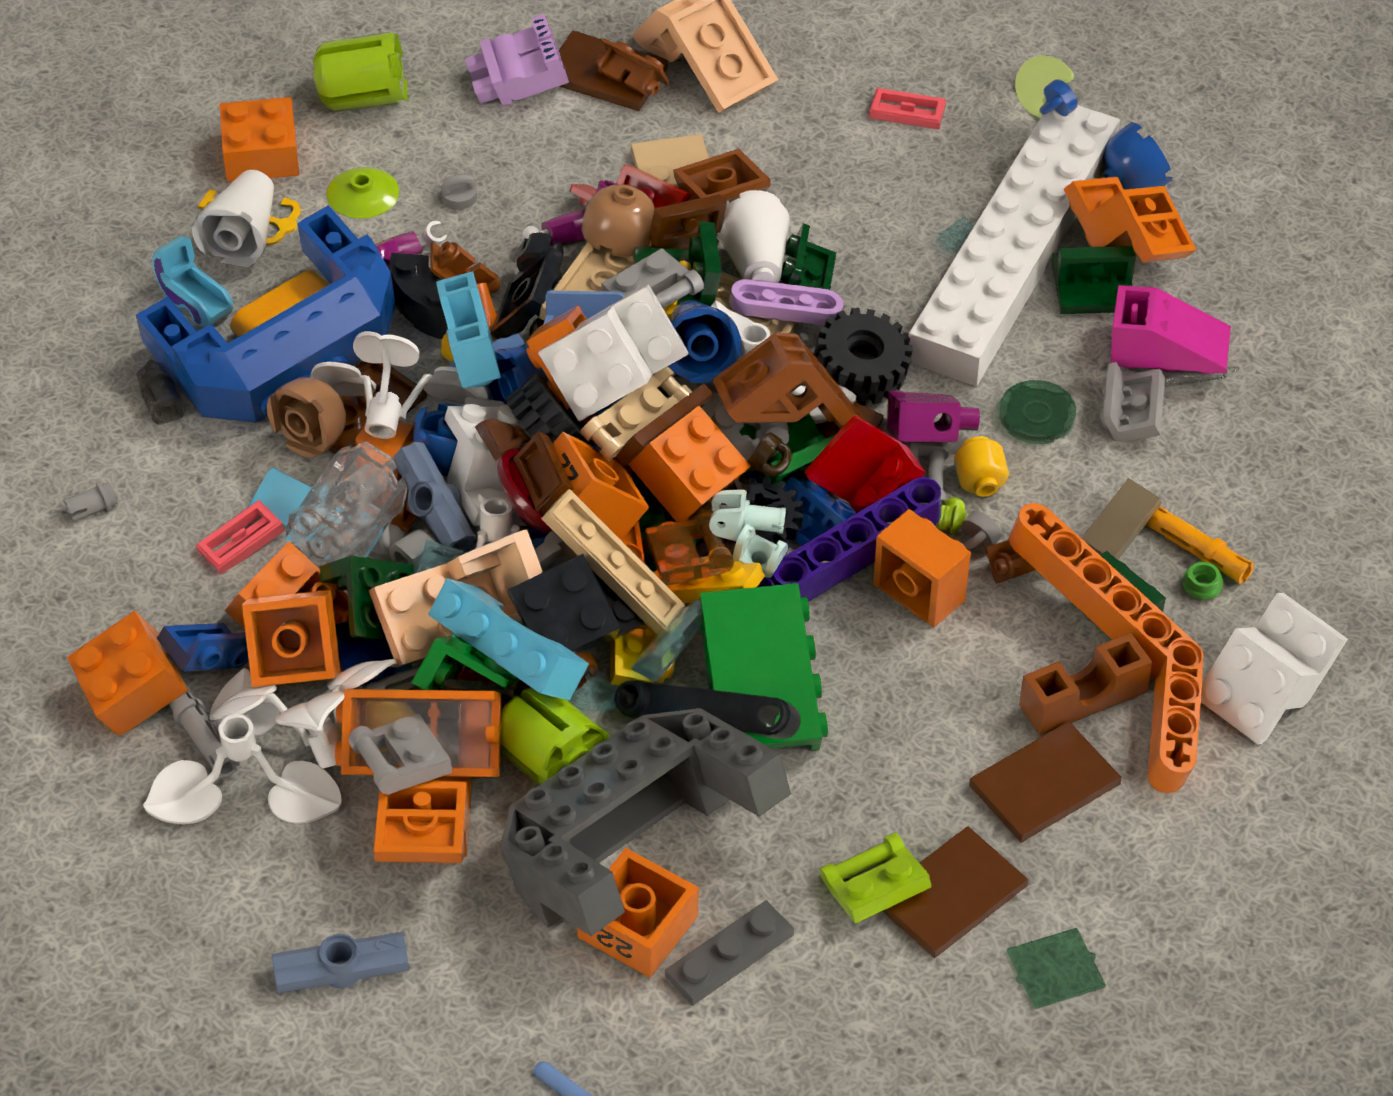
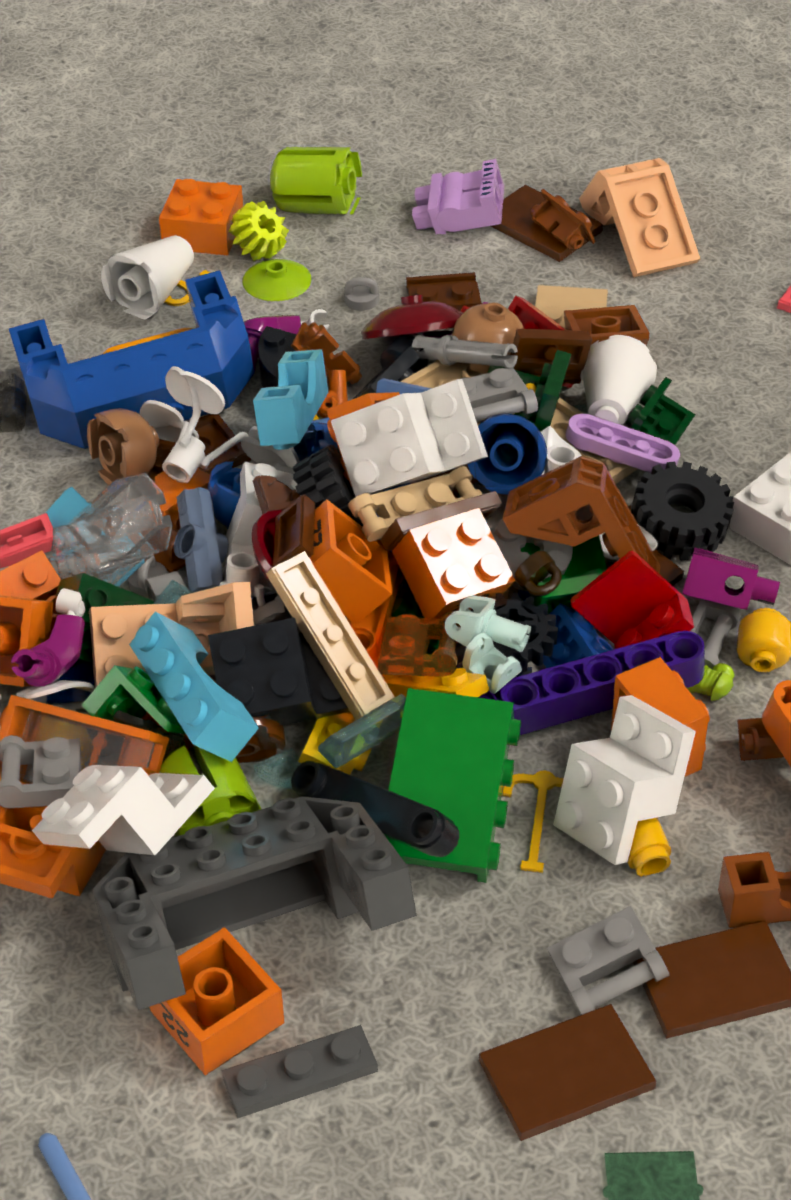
camera: 20 degrees right, 5 degrees down
(188, 285) = (78, 316): medium azure animal -> none
(328, 143) = (258, 230): none -> neon yellow gear
(358, 643) = (57, 654): none -> magenta arm
(502, 768) = (122, 809): none -> white bracket
(534, 215) = (411, 317): none -> dark red dish
(540, 173) = (449, 289): none -> reddish brown plate
(591, 242) = (451, 350): none -> light grey pin
(834, 646) = (543, 781): none -> yellow piece
(880, 886) = (489, 1043): lime plate -> none
(913, 628) = (623, 779): none -> white bracket
(942, 678) = (649, 848): none -> yellow brick
(944, 782) = (603, 950): none -> light grey plate
(980, 530) = (740, 701): light grey tile -> none

